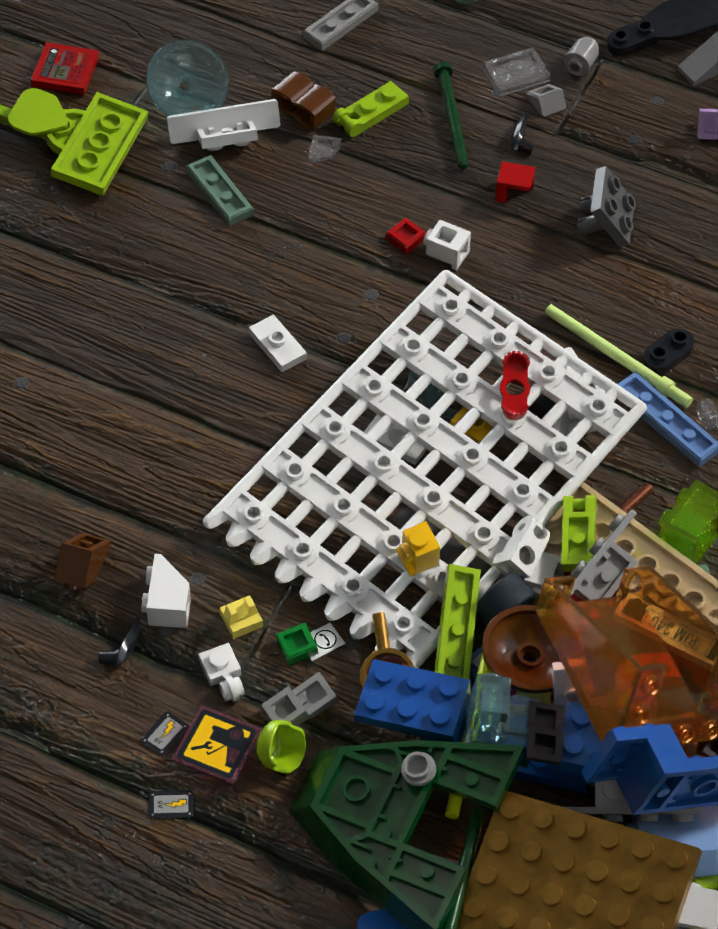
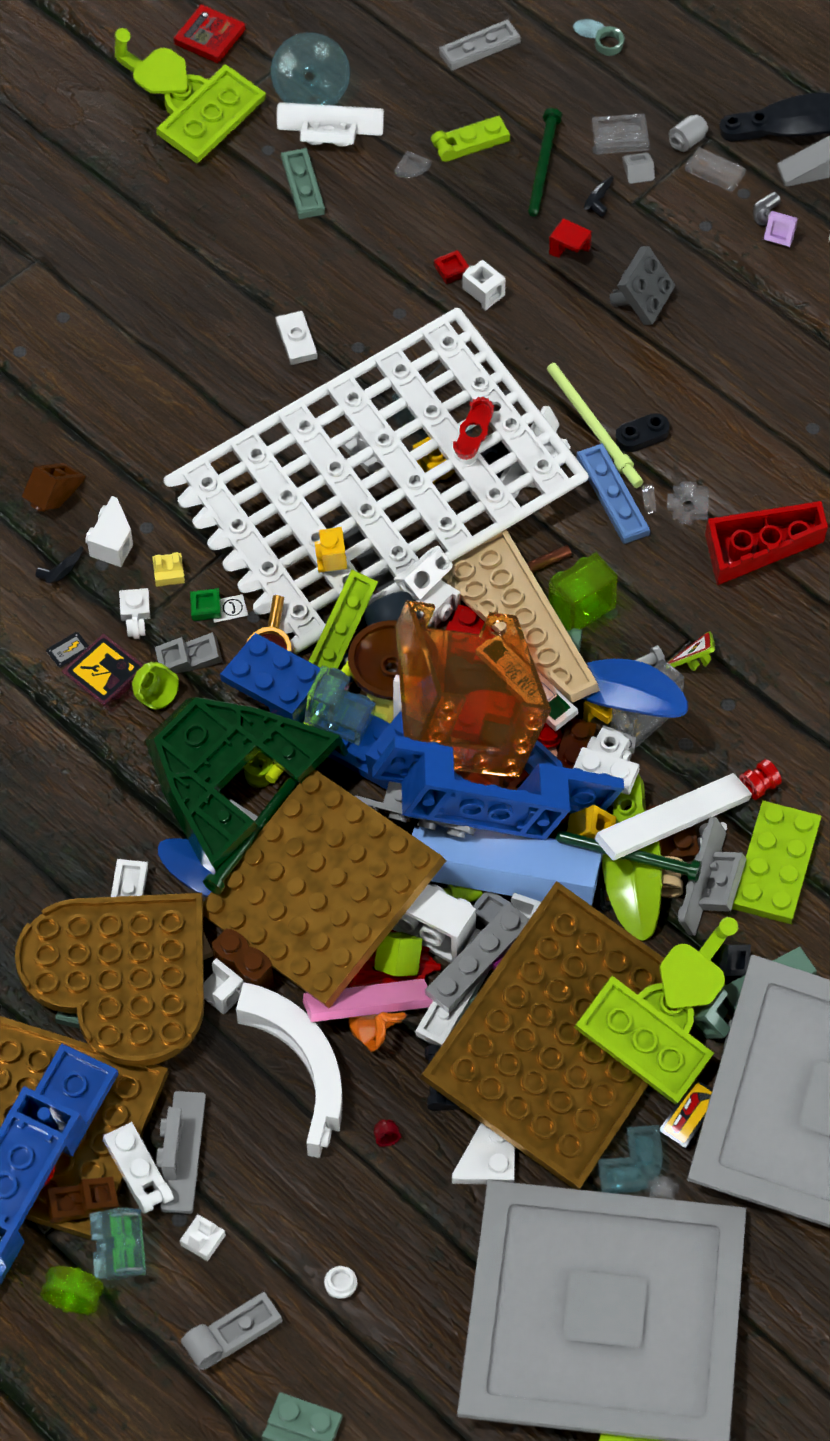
camera: 20 degrees right, 5 degrees up
(171, 804) = (50, 708): sticker -> none
(304, 100) = (411, 115): reddish brown brick -> none
(418, 768) = (247, 730): light grey plate -> none
(434, 815) = (254, 774): none -> lime wheel
(544, 732) = (364, 730): black slope -> none
(578, 530) = (478, 572): lime plate -> none
(604, 571) = (470, 612): light grey bracket -> none
(621, 84) = (715, 169): none -> clear plate
(685, 109) = (762, 208): none -> flat silver arm

